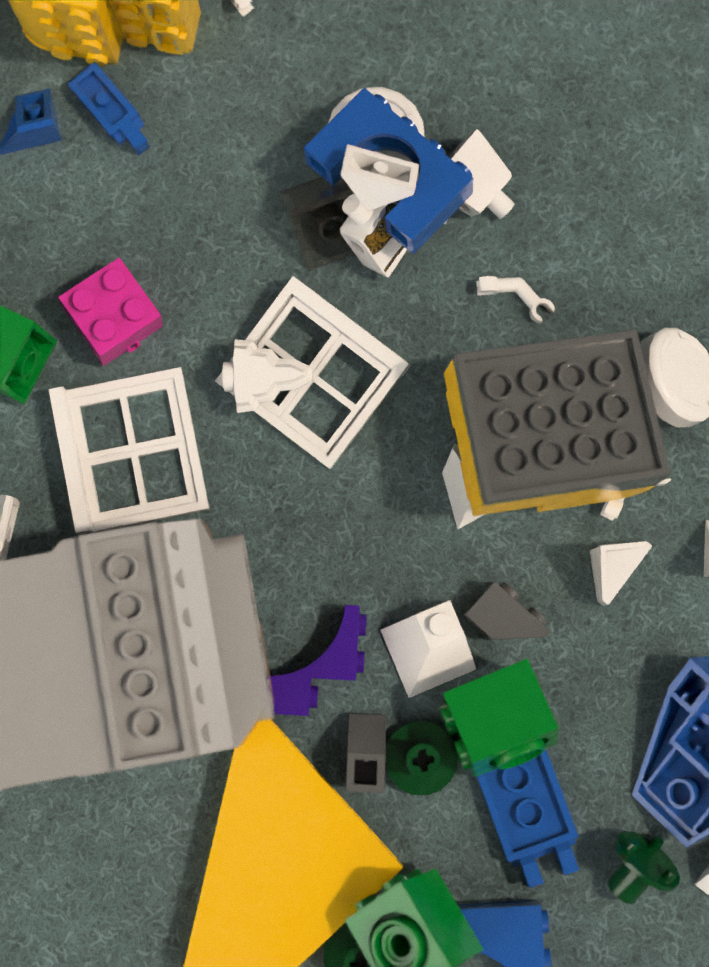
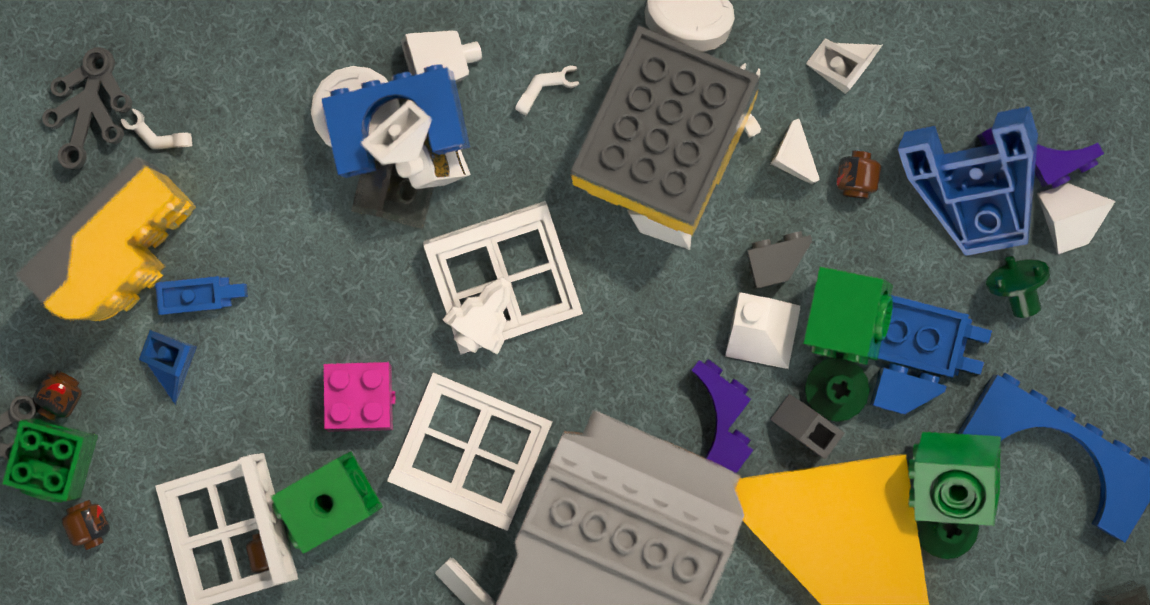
camera: 55 degrees left, 5 degrees up
(461, 824) = (904, 392): none -> blue slope
(637, 640) = (858, 175): none -> reddish brown head

